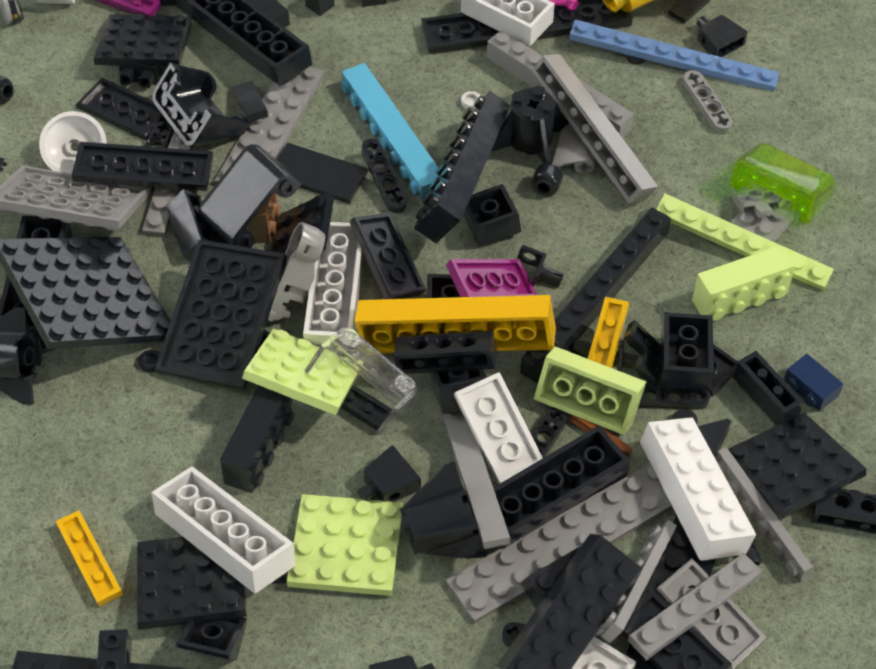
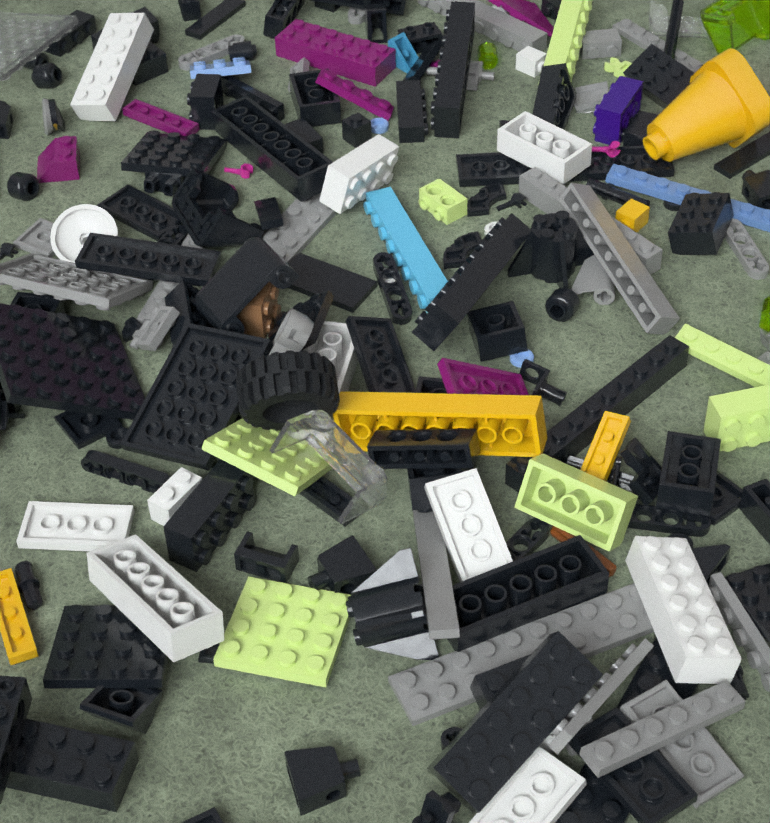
camera: 10 degrees right, 10 degrees down
(24, 147) = (37, 239): none -> light grey tile
(27, 56) = (59, 161): none -> magenta slope
(98, 525) = (28, 585): none -> black axle
(119, 356) = (84, 427): none -> black tile
(129, 460) = (73, 525): none -> white plate
(139, 242) = (130, 327): none -> black tile
(163, 242) = (154, 328): none -> light grey plate
(168, 398) = (128, 472): none -> black beam
(216, 52) = (244, 172): none -> dark pink hand
(220, 422) = (172, 495): none -> white brick
(313, 311) = (286, 387): none -> black tyre
(314, 477) = (265, 562): none -> black panel
(333, 52) = (359, 172): none -> white brick
(416, 73) = (442, 201): none -> yellowish green brick
(441, 124) = (460, 250): none -> black tile
(453, 68) = (487, 196): none -> black tile
(486, 65) = (516, 200): none -> black hand
(517, 240) = (517, 359): none -> light blue tile
(584, 53) = (612, 193): none -> black pin
(599, 75) = (633, 214): none -> yellow brick
(665, 80) = (701, 224): none -> black brick

